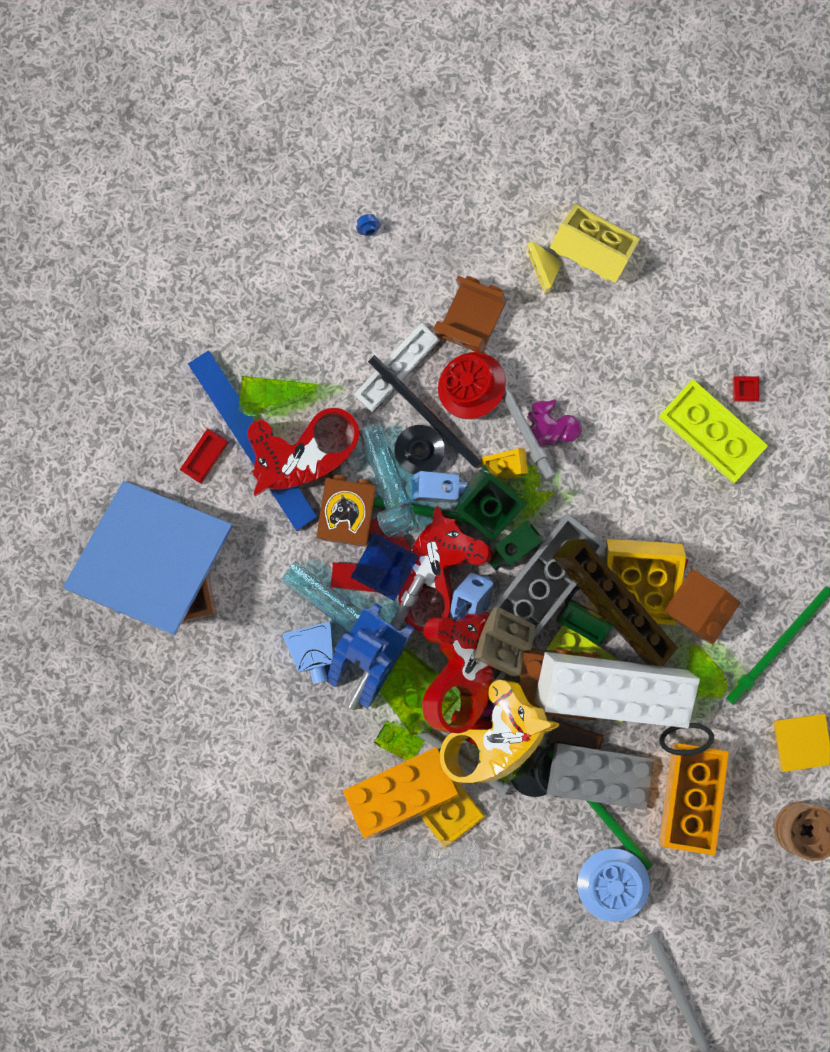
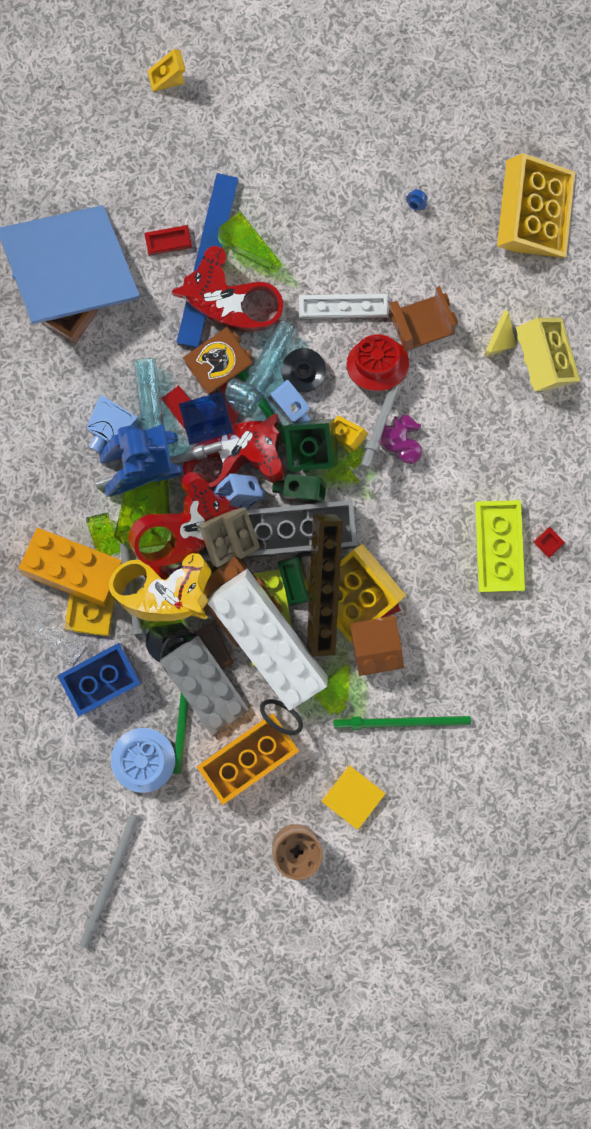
camera: 45 degrees right, 0 degrees up
(64, 322) = (167, 71): none -> yellow slope
(390, 377) = (332, 307): black bar -> none
(466, 137) = (535, 207): none -> yellow slope
(516, 857) = (100, 679): none -> blue brick

